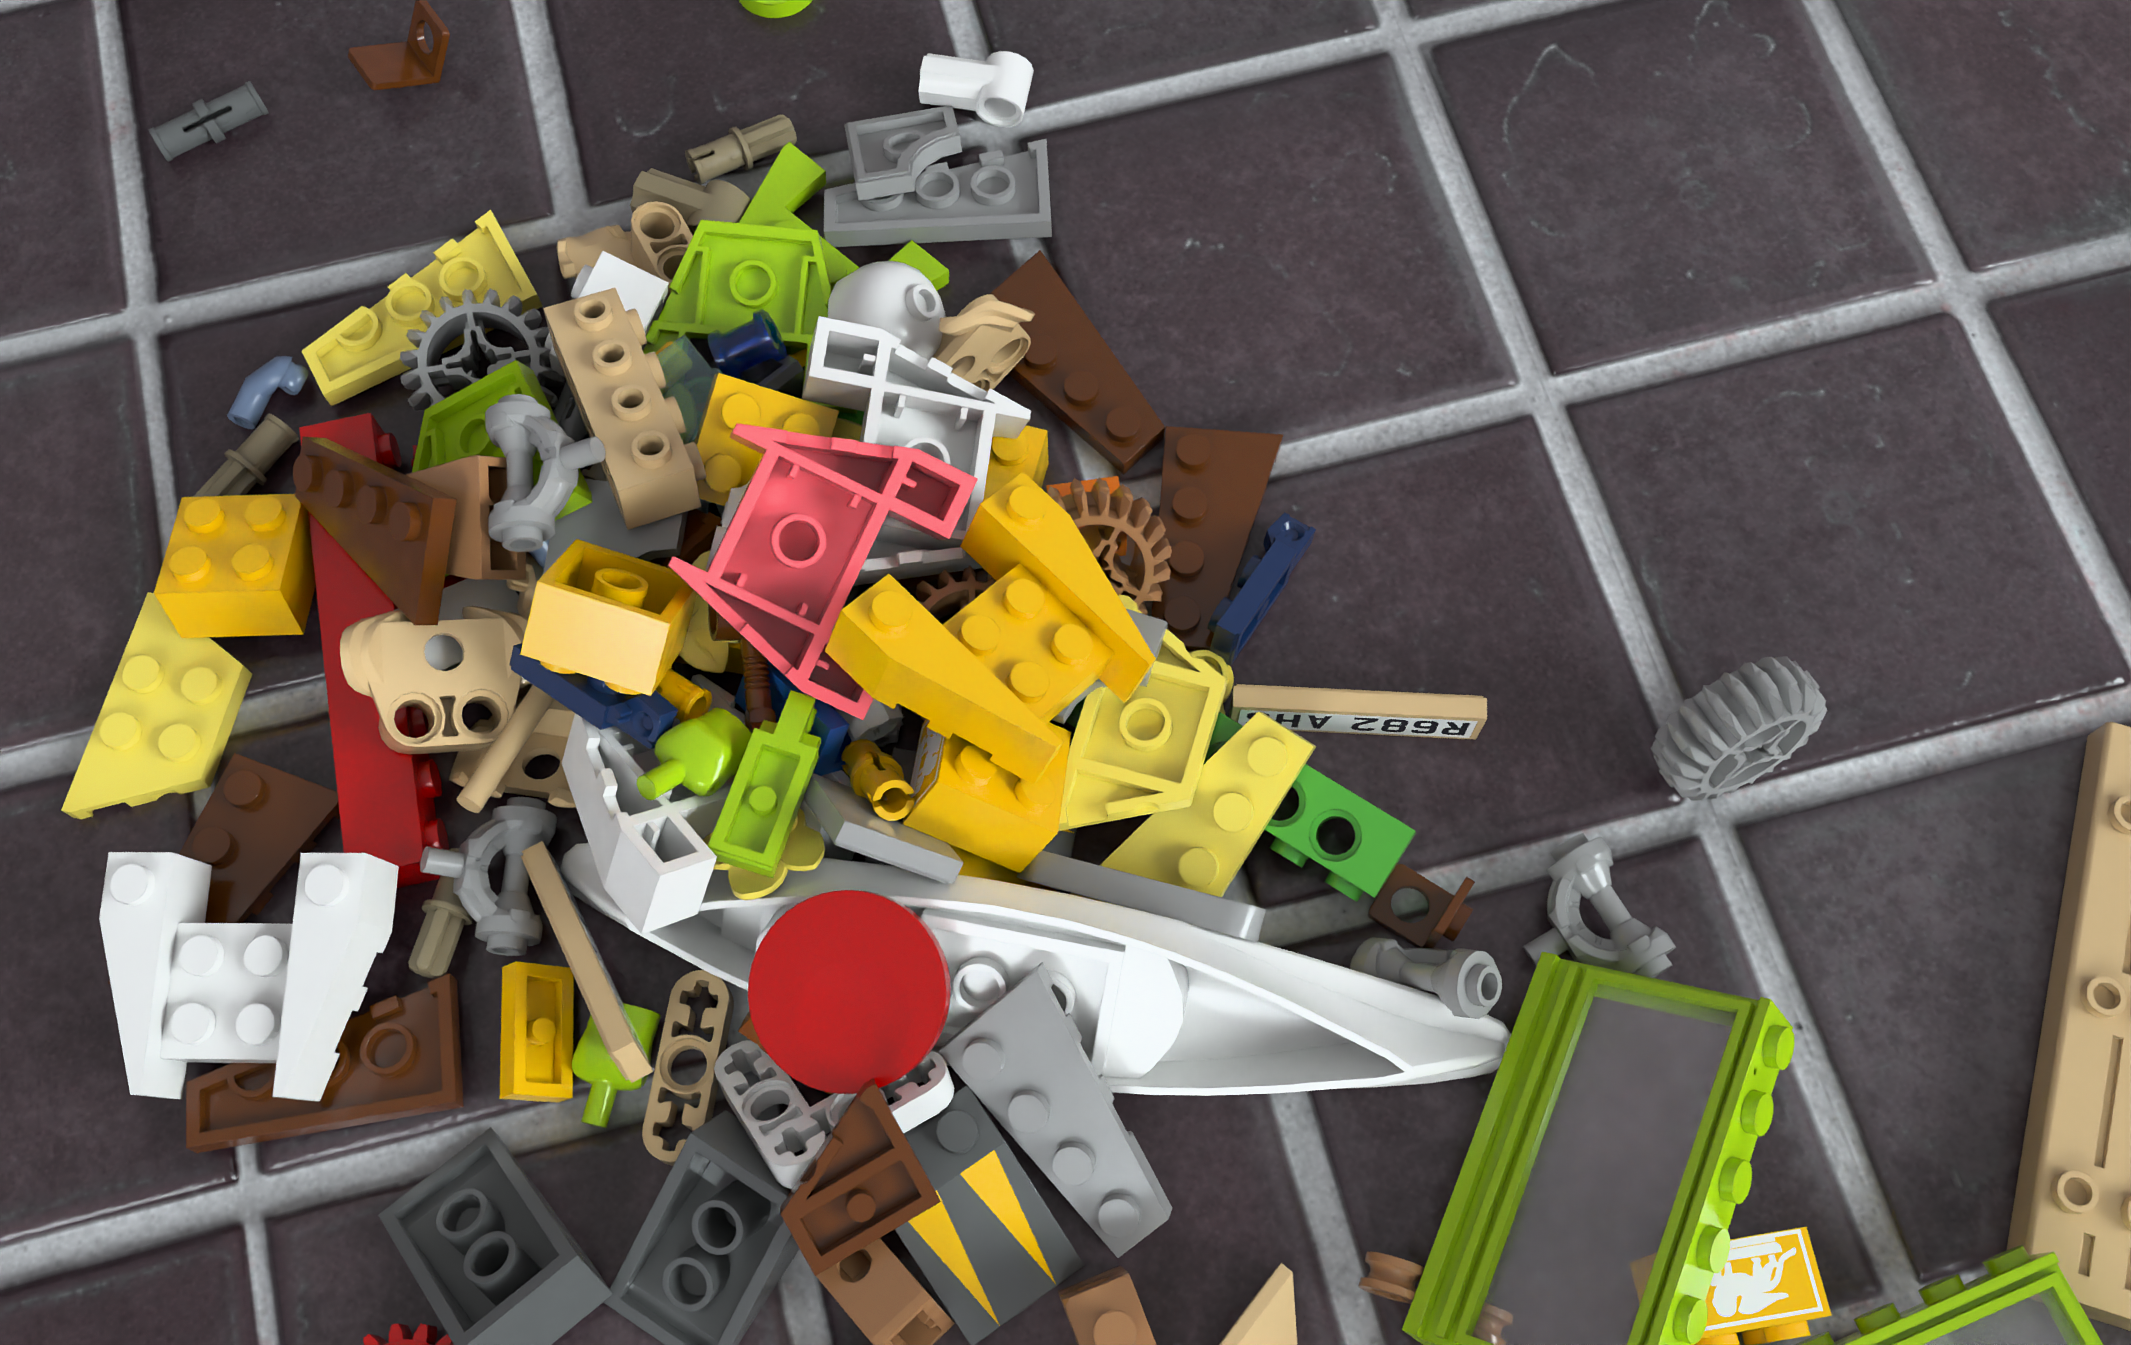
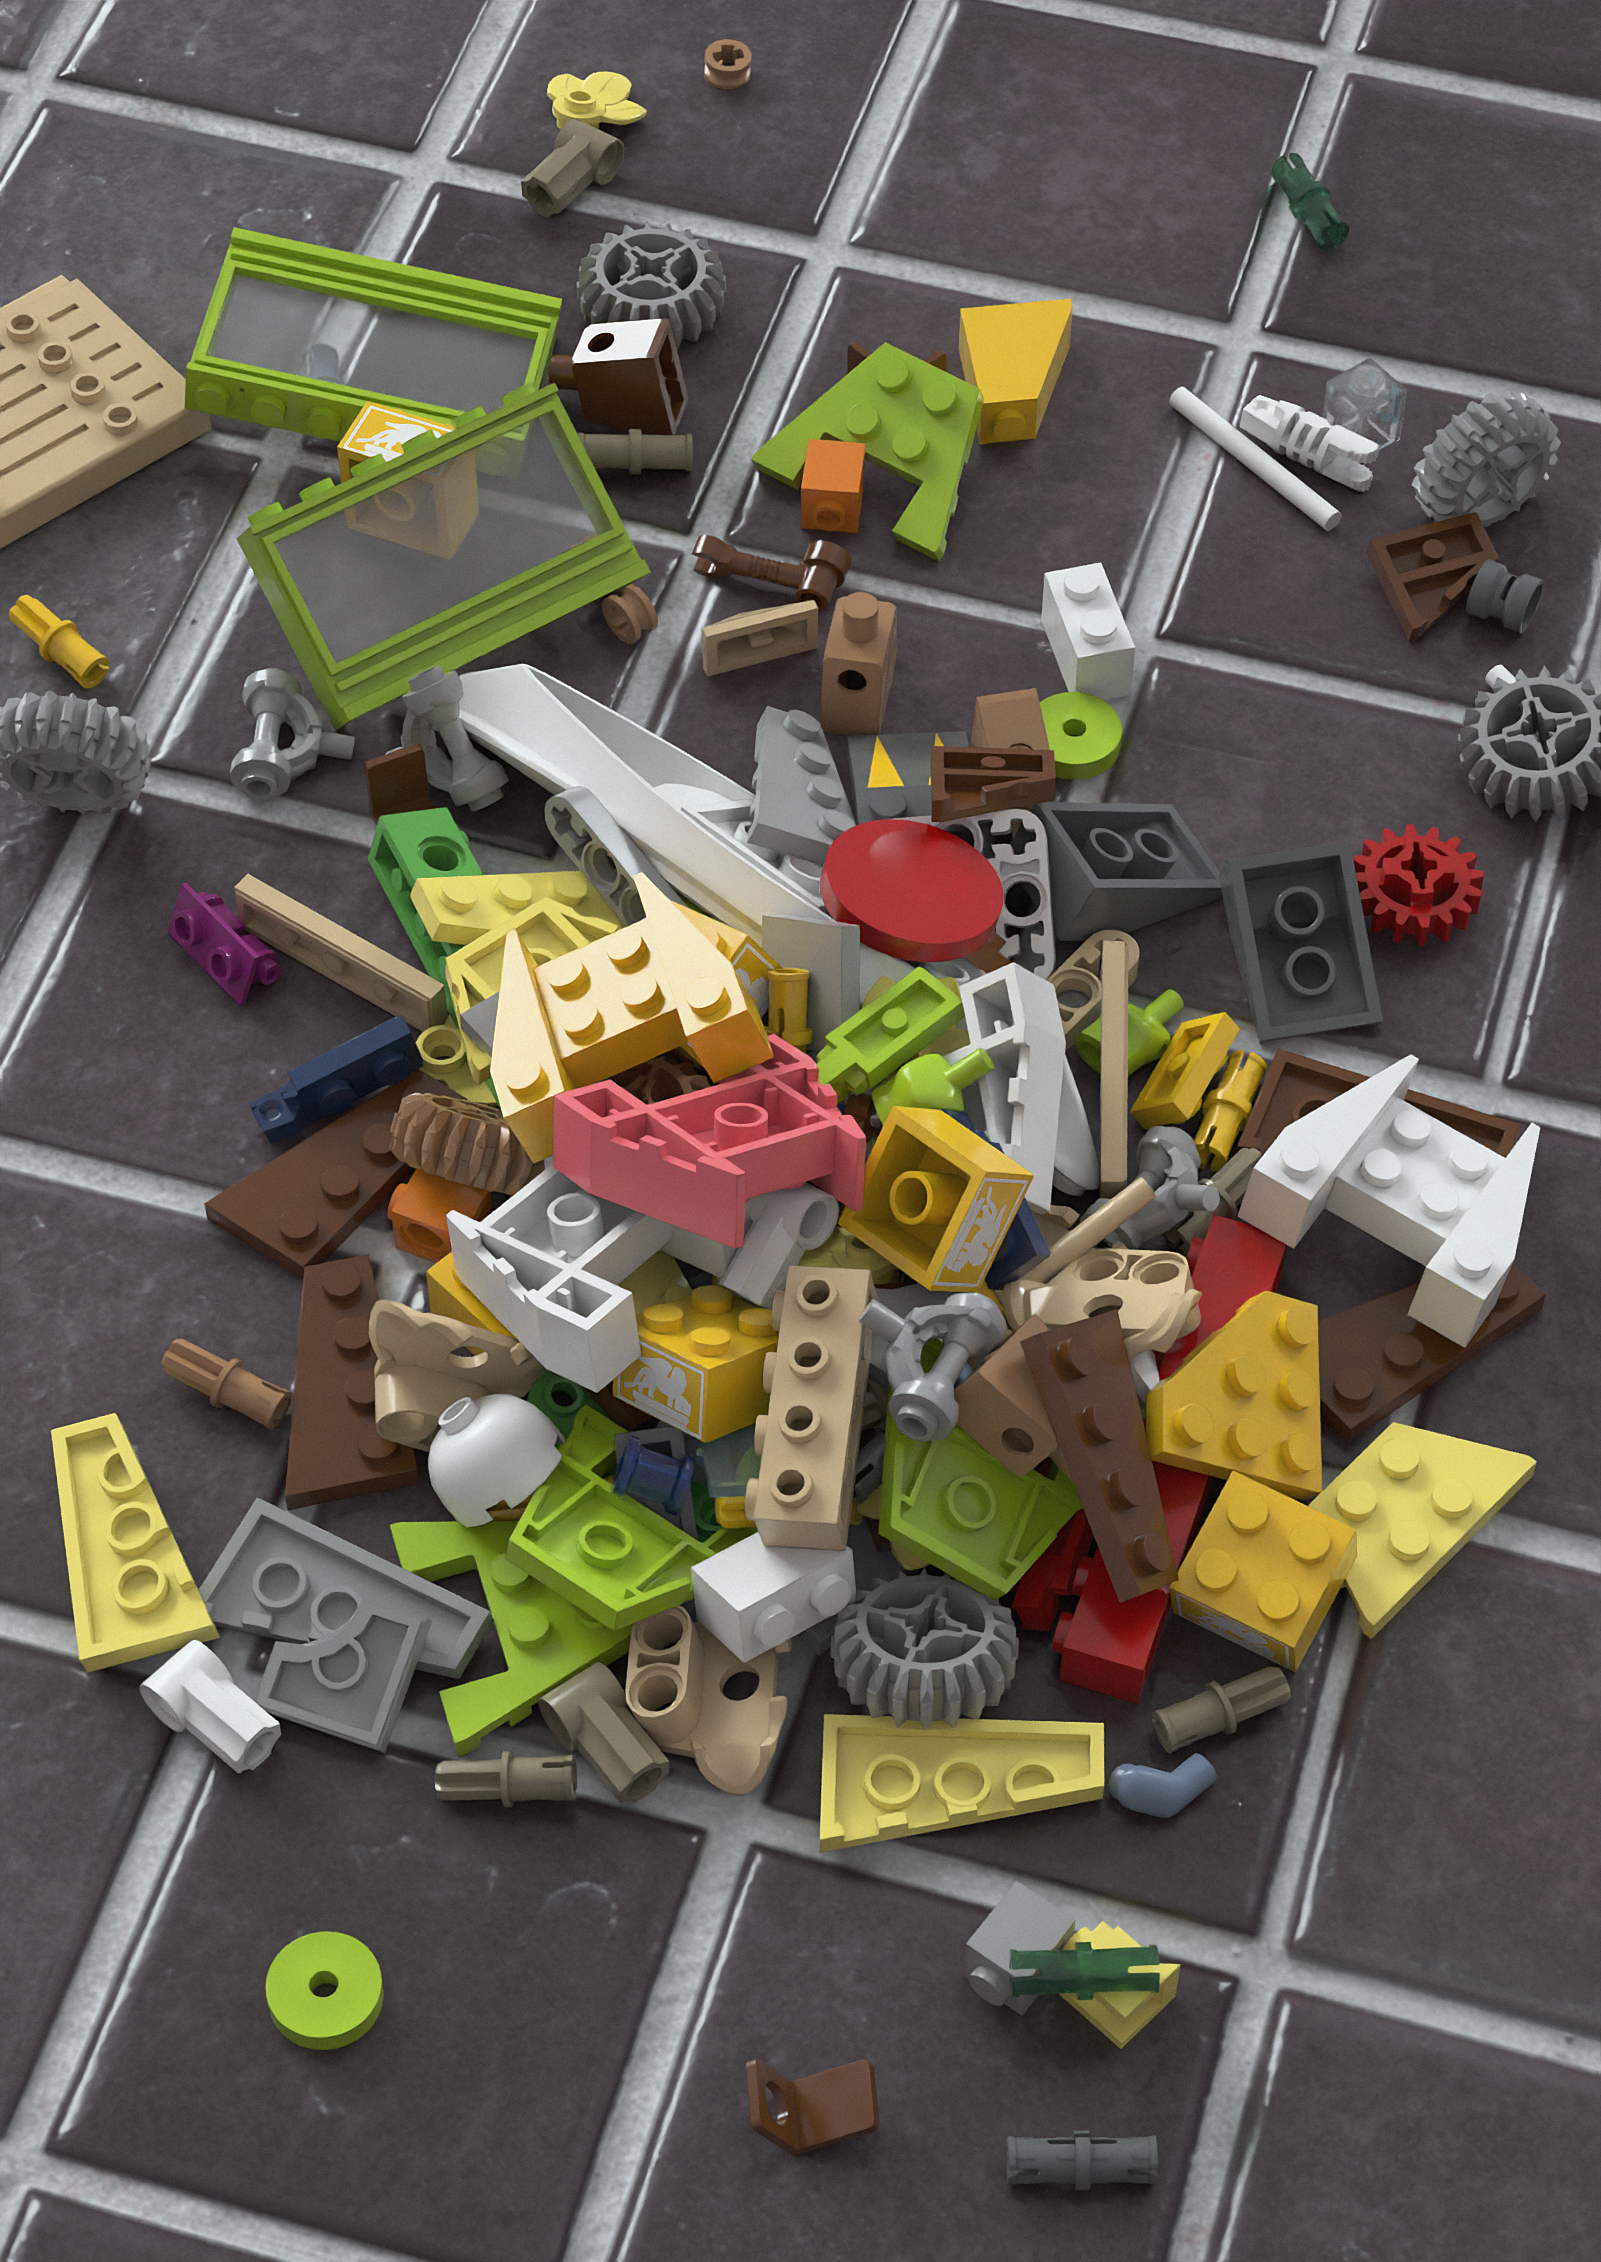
camera: 150 degrees left, 15 degrees down
(230, 228) = (1122, 2013): none -> light yellow window
(233, 180) = (1084, 1970): none -> clear green pin
(302, 696) = (1247, 1400): none -> yellow plate
(311, 216) = (1020, 1923): none -> light grey brick
(480, 1019) = (1228, 1108): none -> yellow pin
(1119, 145) = (122, 1559): none -> light yellow wing
(1151, 306) = (227, 1383): none -> medium nougat axle
(1442, 667) = (213, 939): none -> magenta hinge
(1886, 904) = (60, 641): none -> yellow axle

